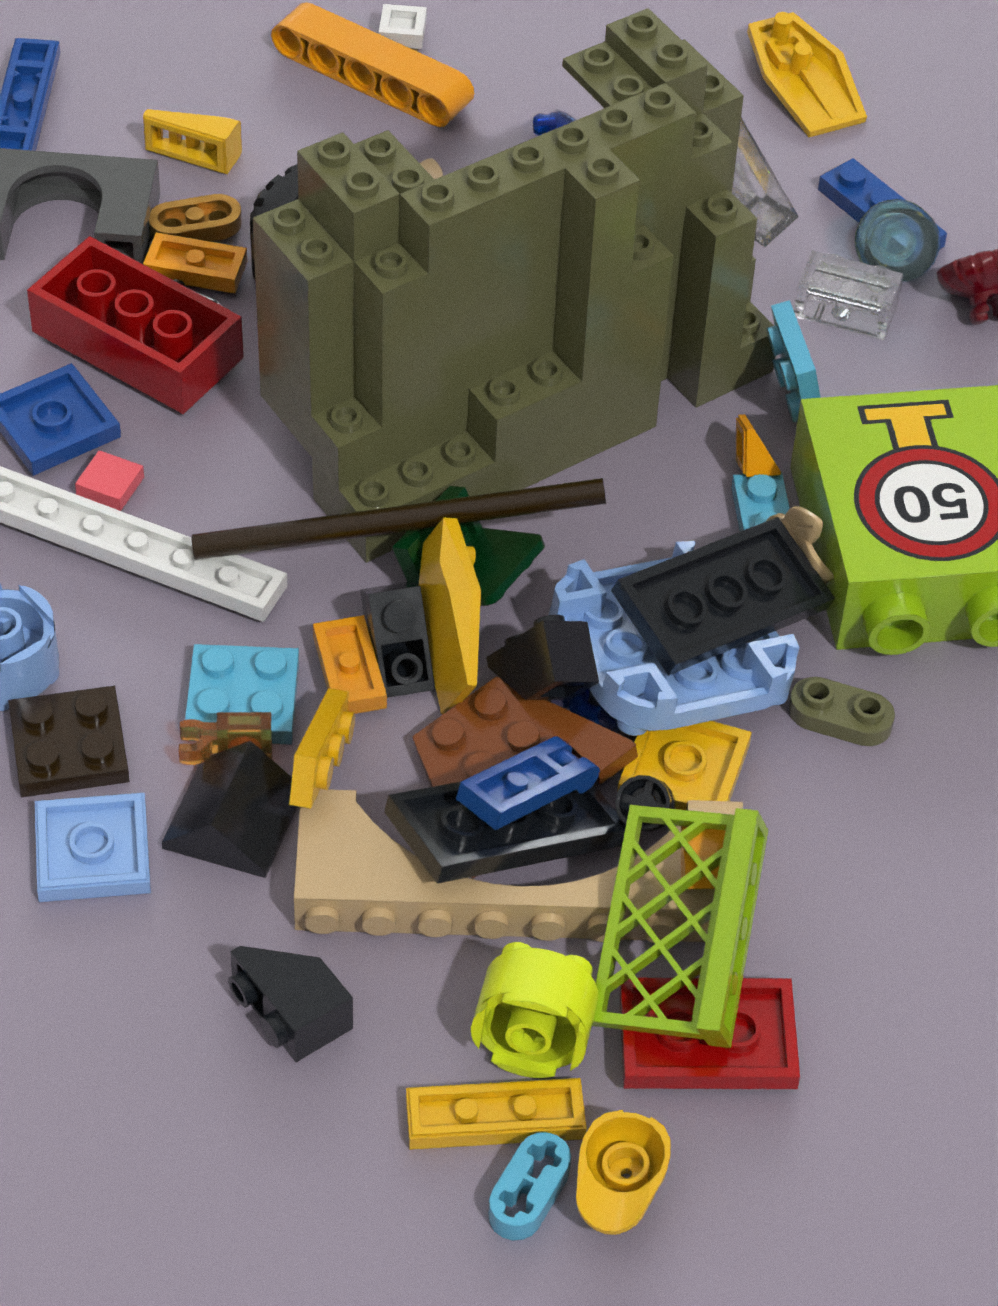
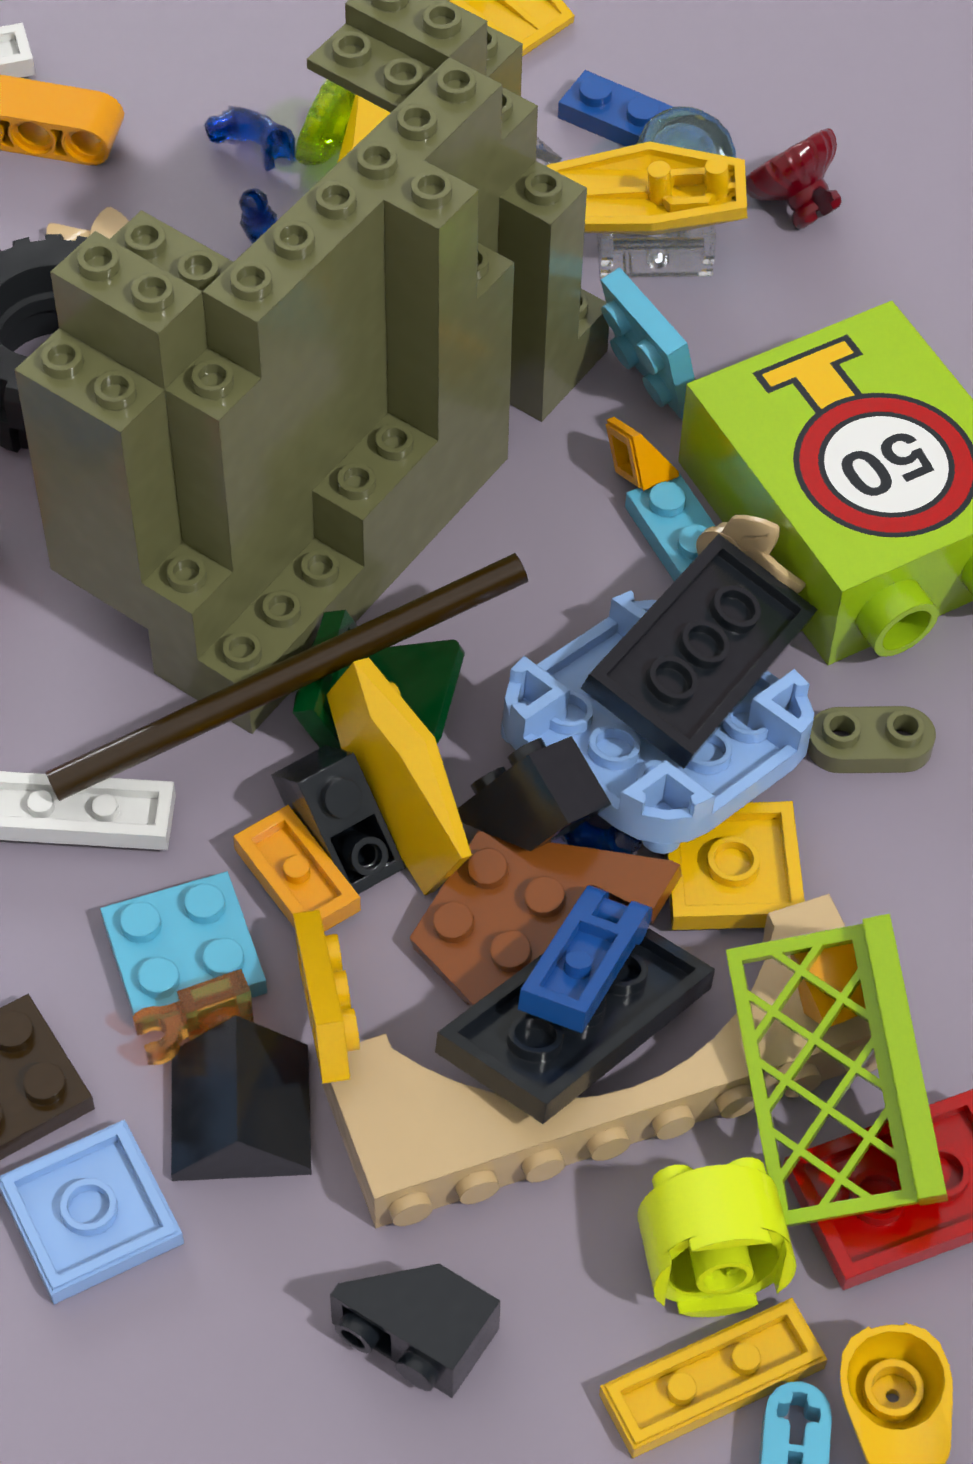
camera: 20 degrees left, 5 degrees up
(639, 792) = (732, 929): black wheel -> none
(847, 255) = (658, 189): none -> yellow piece

